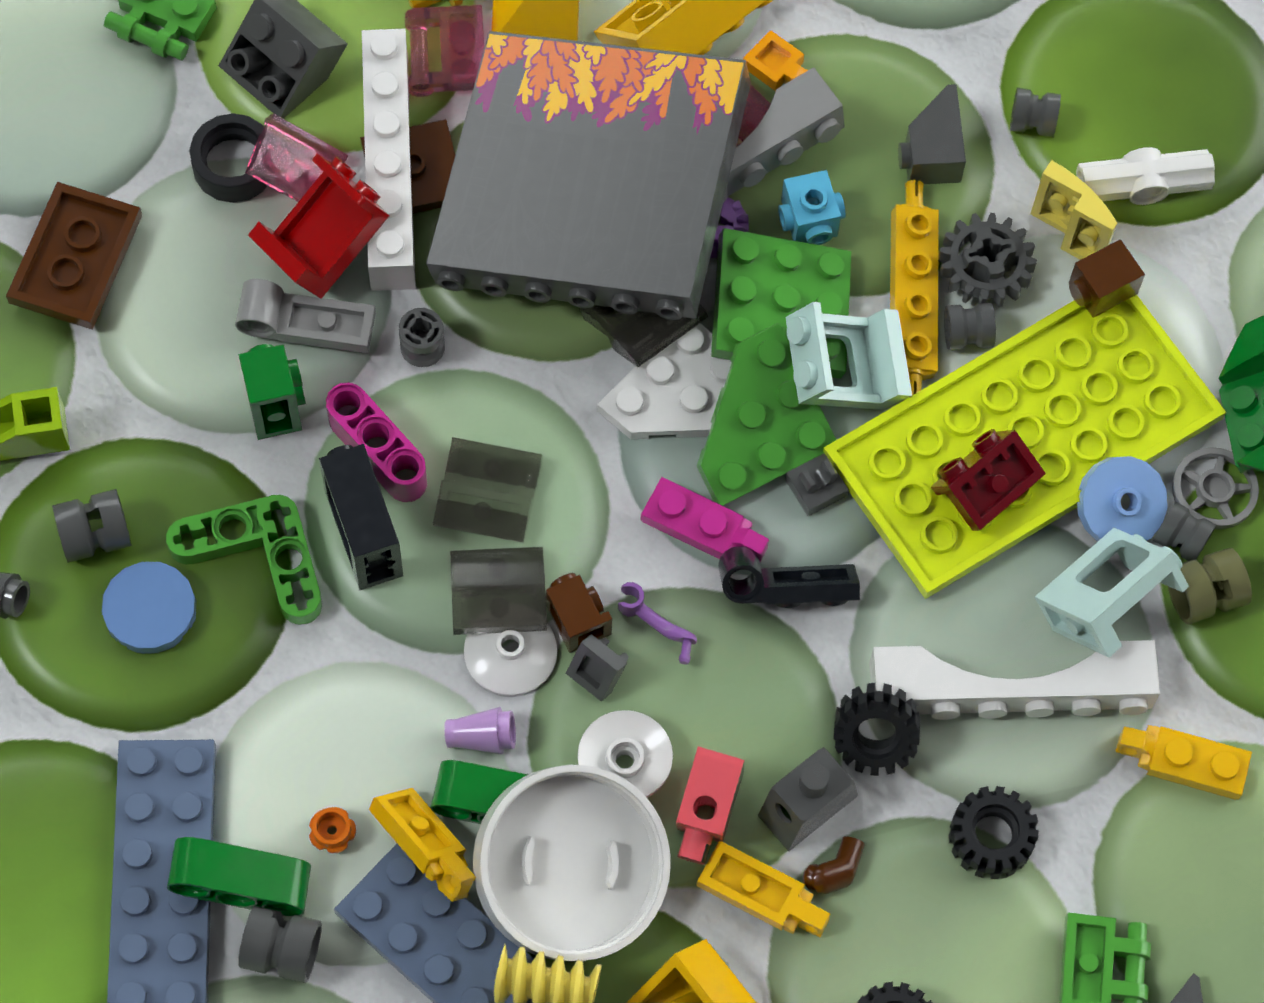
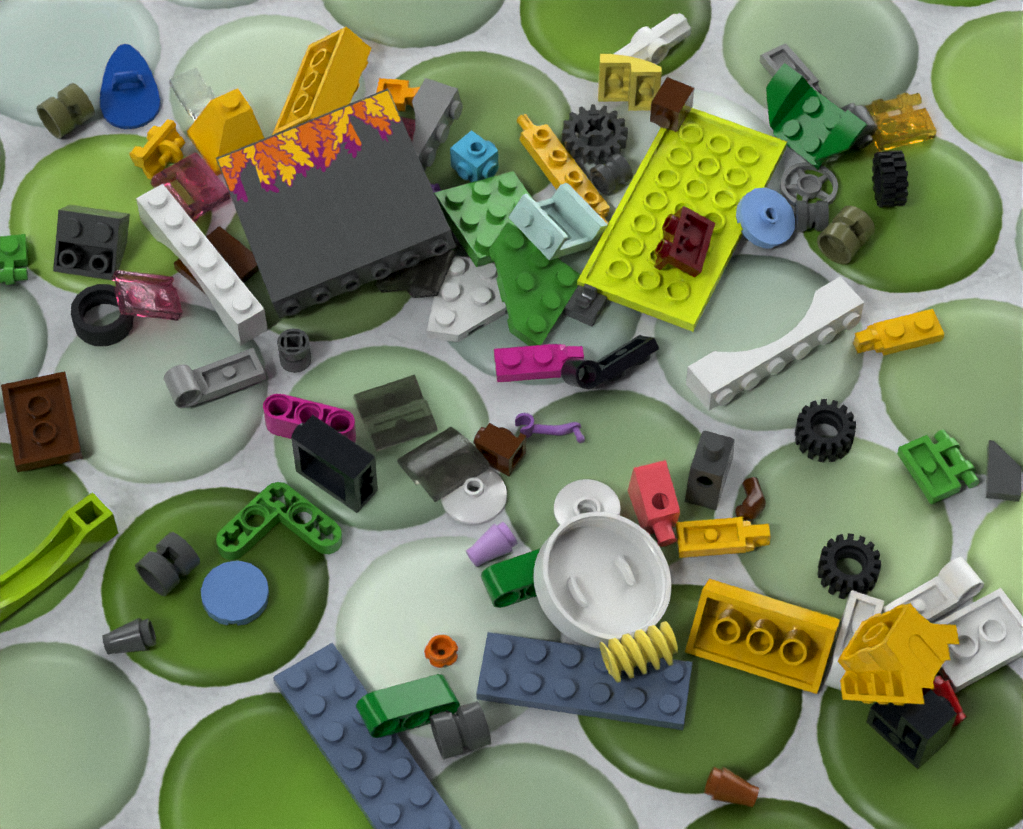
camera: 30 degrees left, 10 degrees down
(272, 390) = (227, 425): green brick -> none
(323, 228) = (193, 317): red panel -> none
(425, 841) = (506, 620): yellow hinge -> none
(596, 667) = (534, 471): dark grey tile -> none
(877, 752) = (710, 396): black tyre -> none
(935, 142) = (520, 88): dark grey slope -> none
(1034, 112) = (563, 44): dark grey wheel -> none
(1087, 613) = (798, 280): light aqua window -> none

